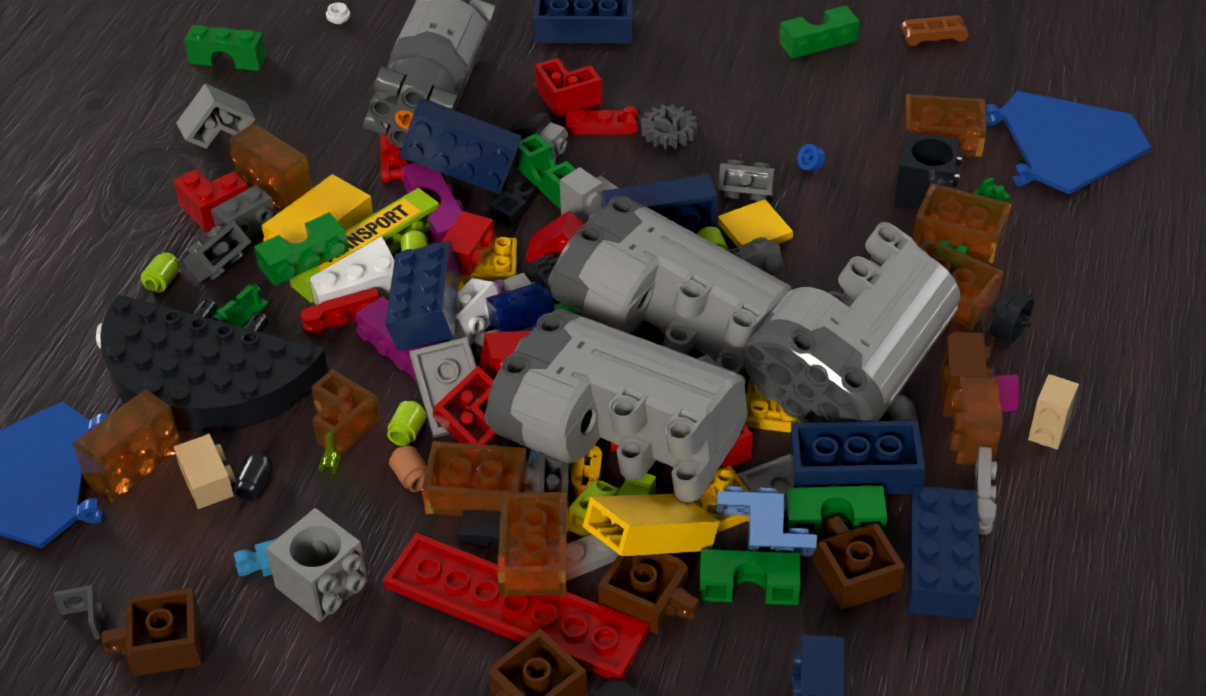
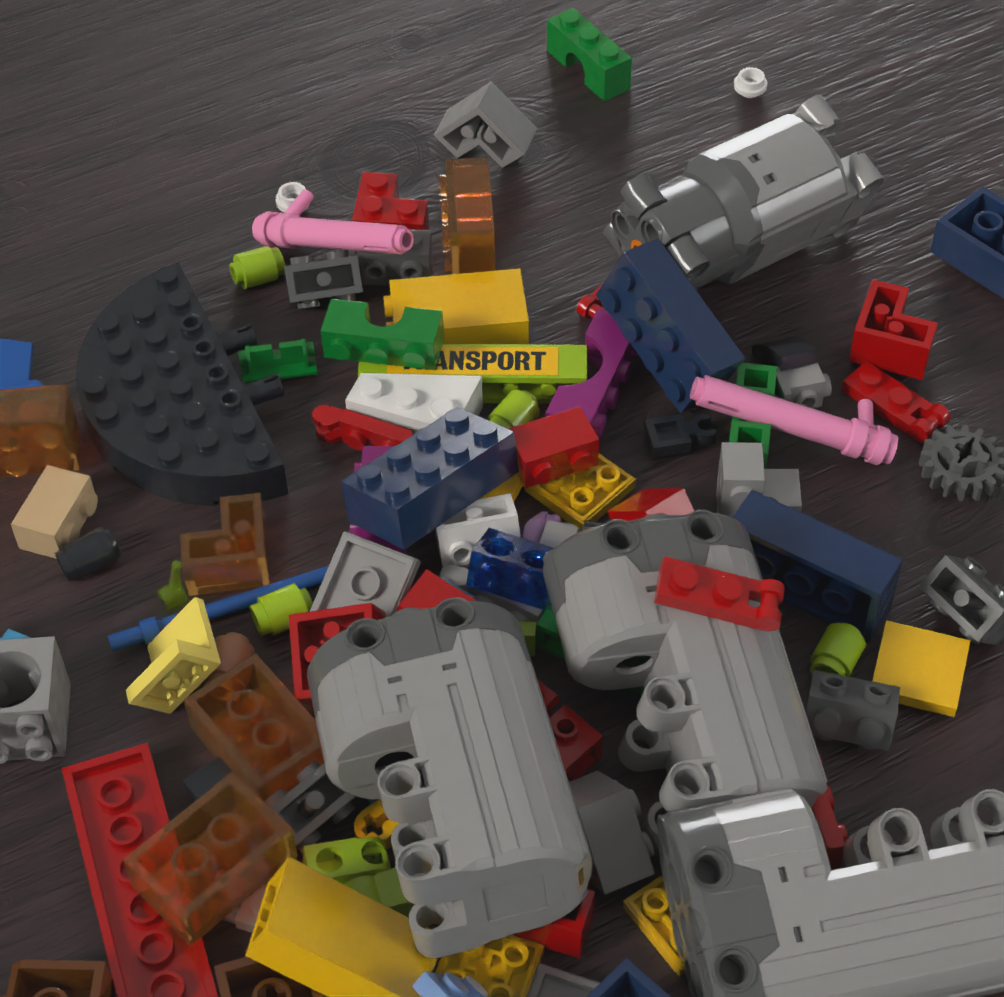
camera: 45 degrees right, 5 degrees up
(133, 226) = (287, 194): none -> white plate
(161, 239) = (291, 231): none -> bright pink cylinder
(342, 484) = (150, 627): none -> blue bar
(382, 479) = (179, 661): none -> light yellow bracket
(601, 146) = (851, 437): none -> bright pink cylinder
(666, 228) = (719, 594): none -> red plate

